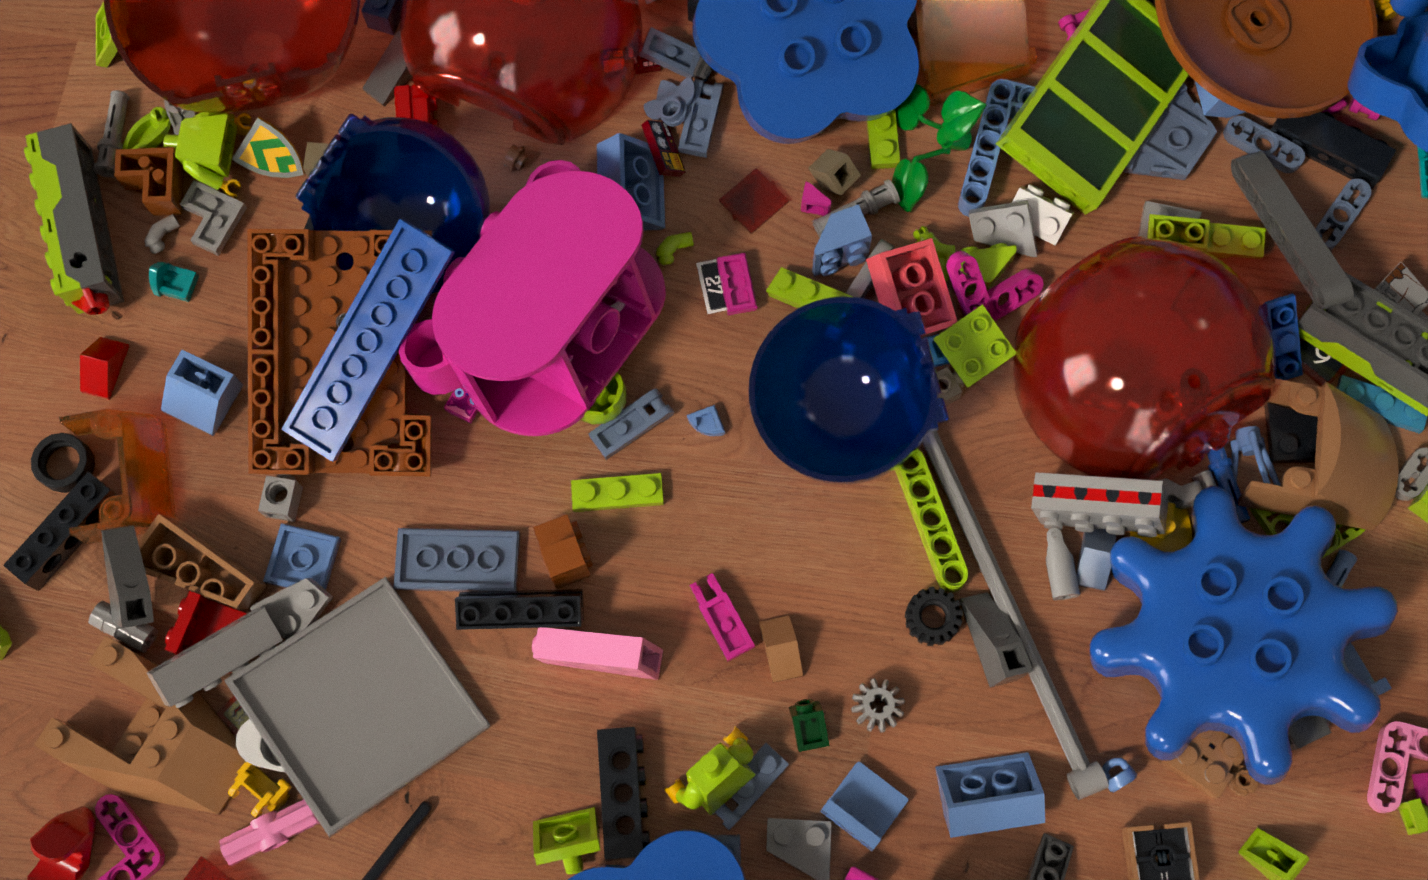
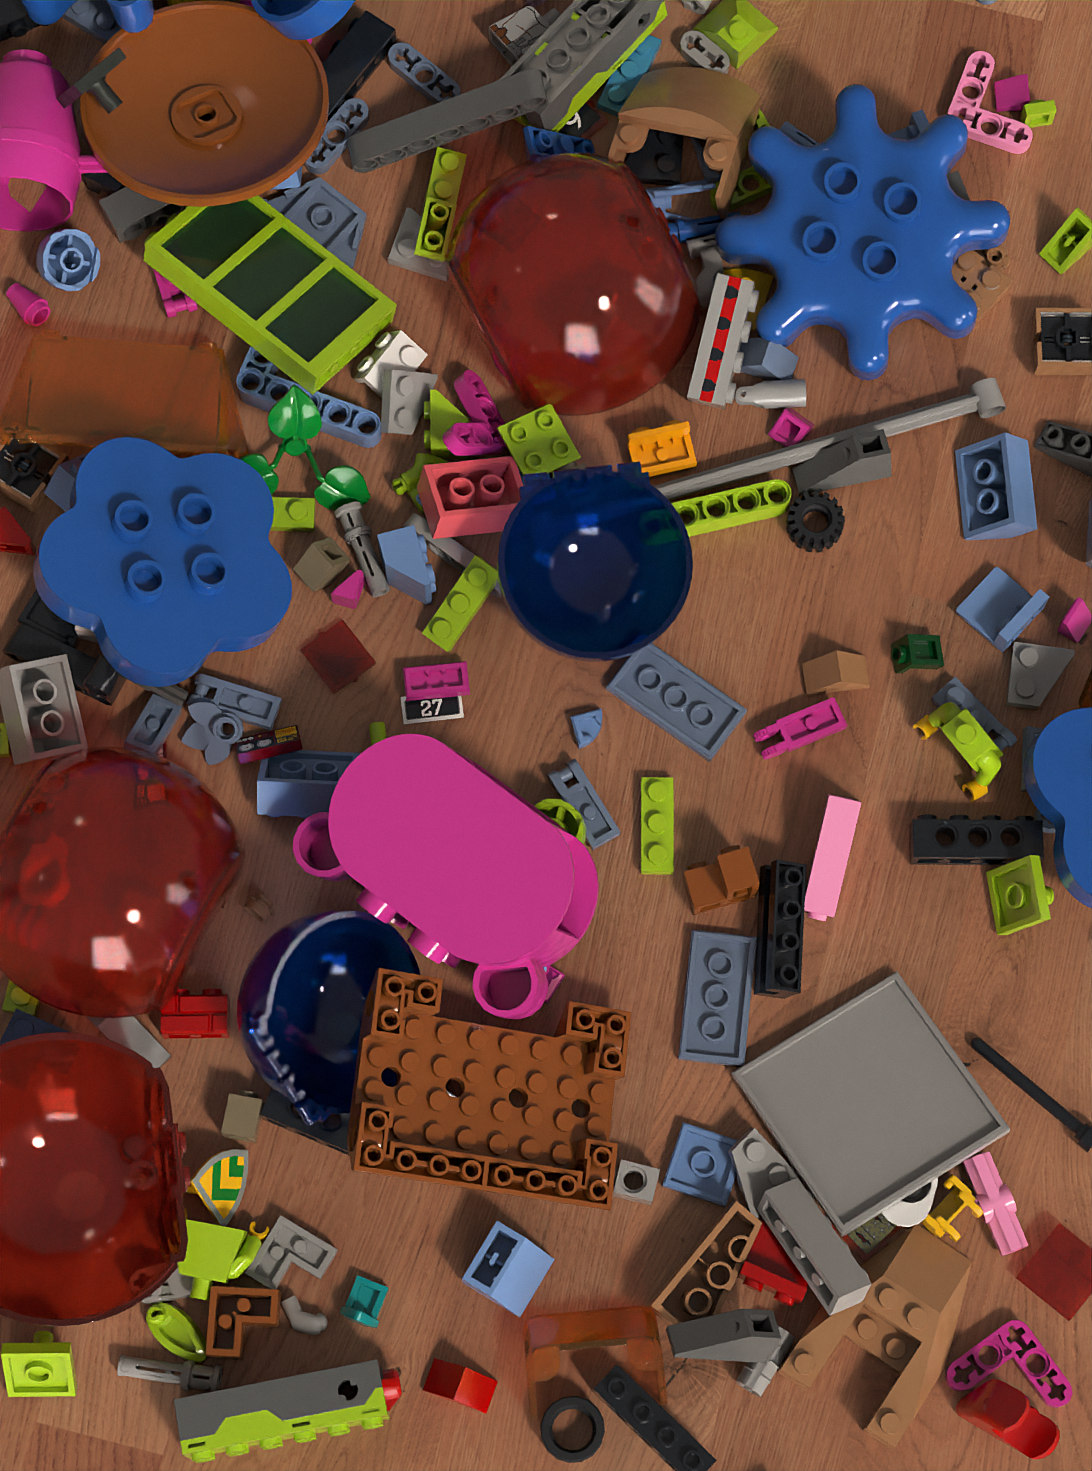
camera: 90 degrees left, 0 degrees up
(368, 339) = (489, 1051): blue plate -> none
(740, 502) = (677, 700): none -> sand blue tile
(868, 699) = (911, 578): light grey gear -> none
(987, 464) = (662, 448): none -> light orange bracket
(1029, 588) = (790, 428): none -> dark pink slope
(1122, 778) = (987, 366): medium blue tile -> none

